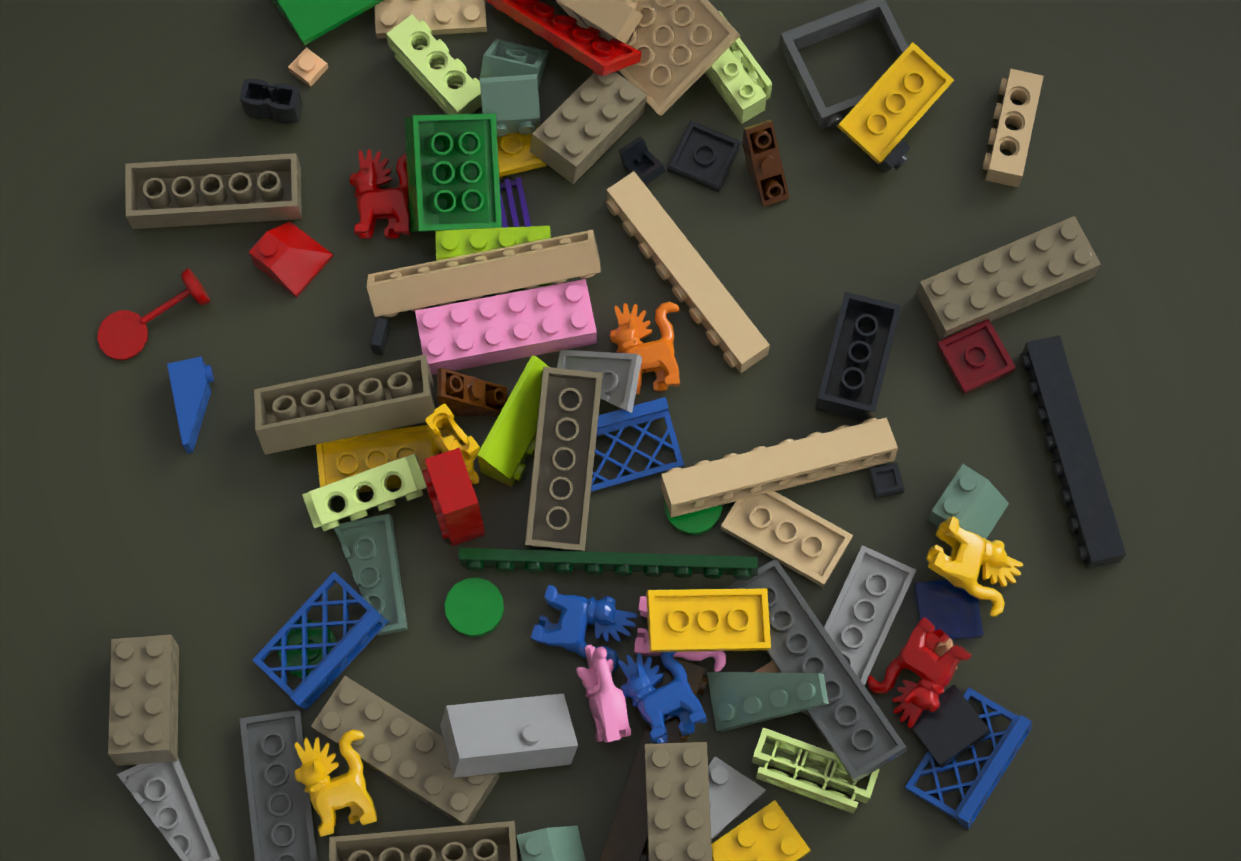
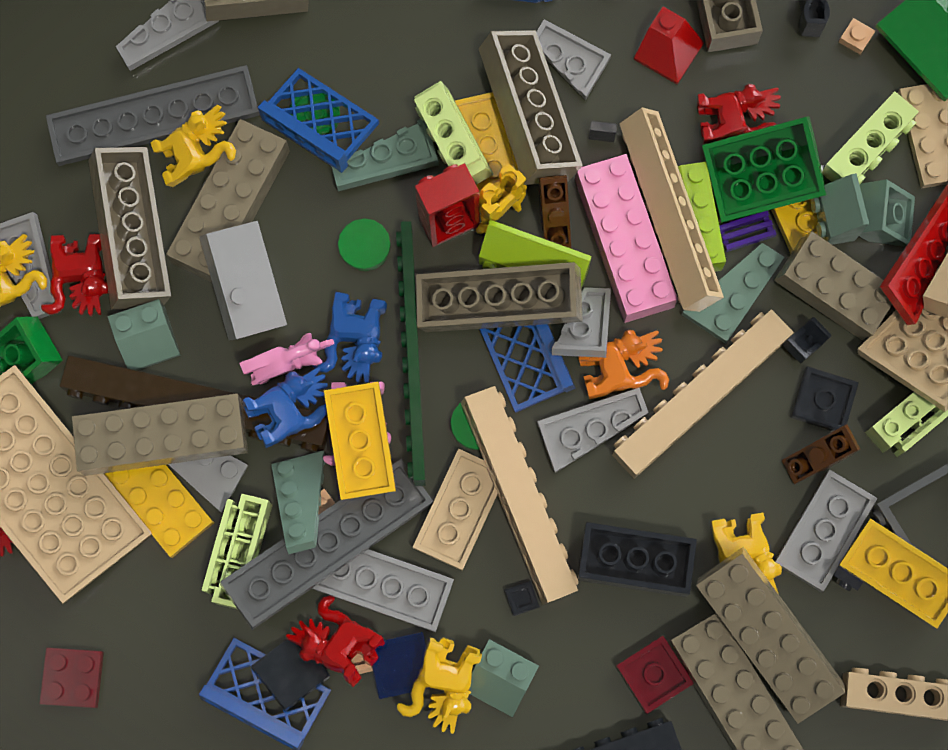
camera: 85 degrees right, 5 degrees up
(287, 357) = (572, 57): none -> light grey wing
(571, 215) = (740, 290): none -> sand green wing
(712, 400) = (586, 427): none -> light grey wing
(842, 173) = (825, 530): none -> light grey plate
(855, 248) = (753, 542): none -> yellow animal
(947, 235) = (771, 635): none -> dark tan brick

